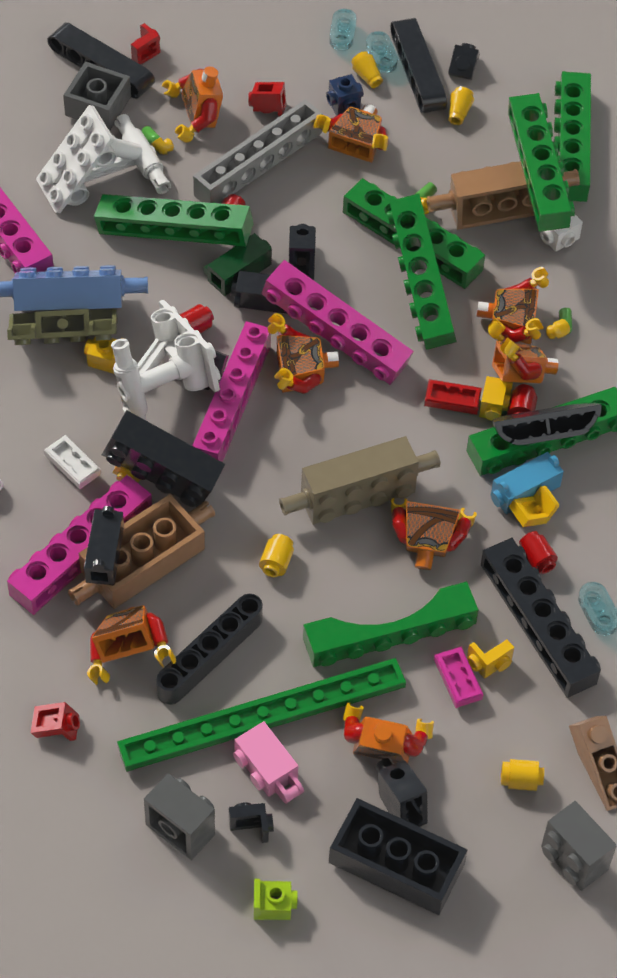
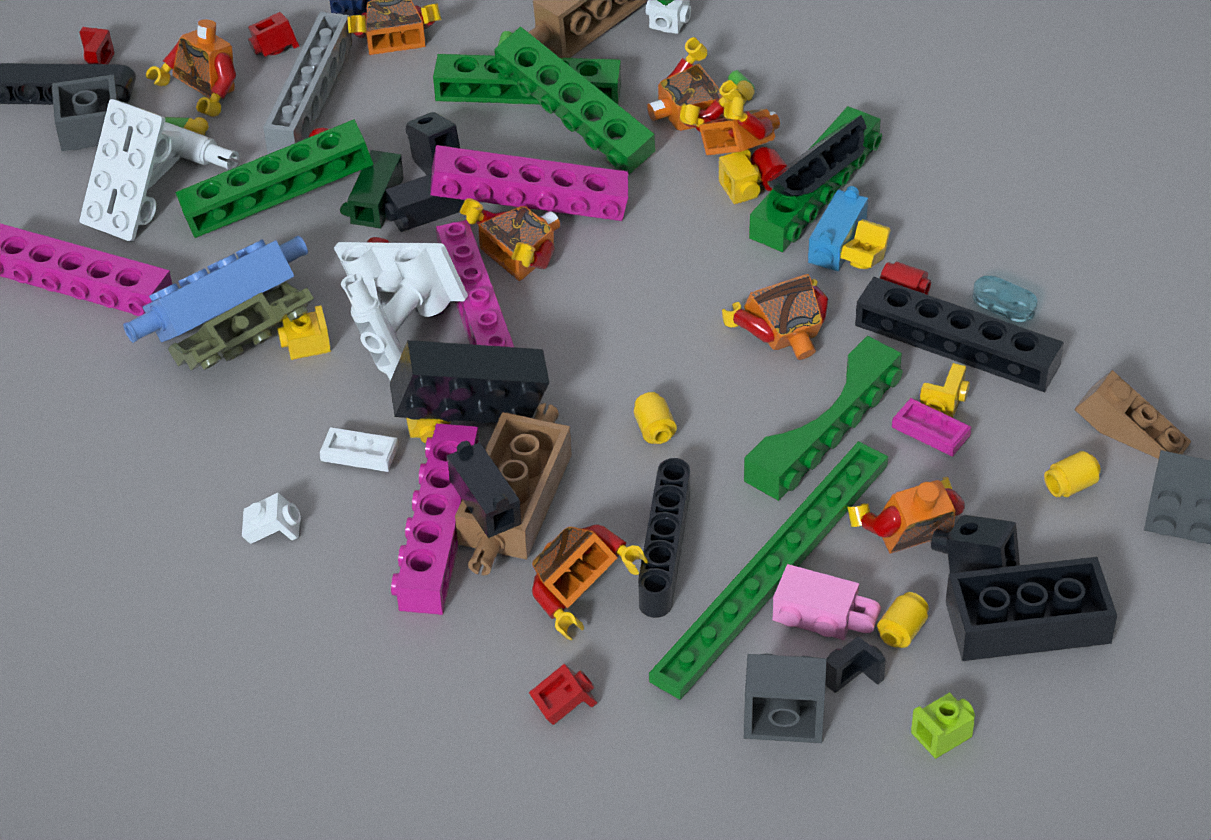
camera: 30 degrees left, 10 degrees down
(311, 809) = (903, 620): none -> yellow brick
(359, 480) = (679, 306): dark tan brick -> none
(452, 397) = (696, 196): red plate -> none

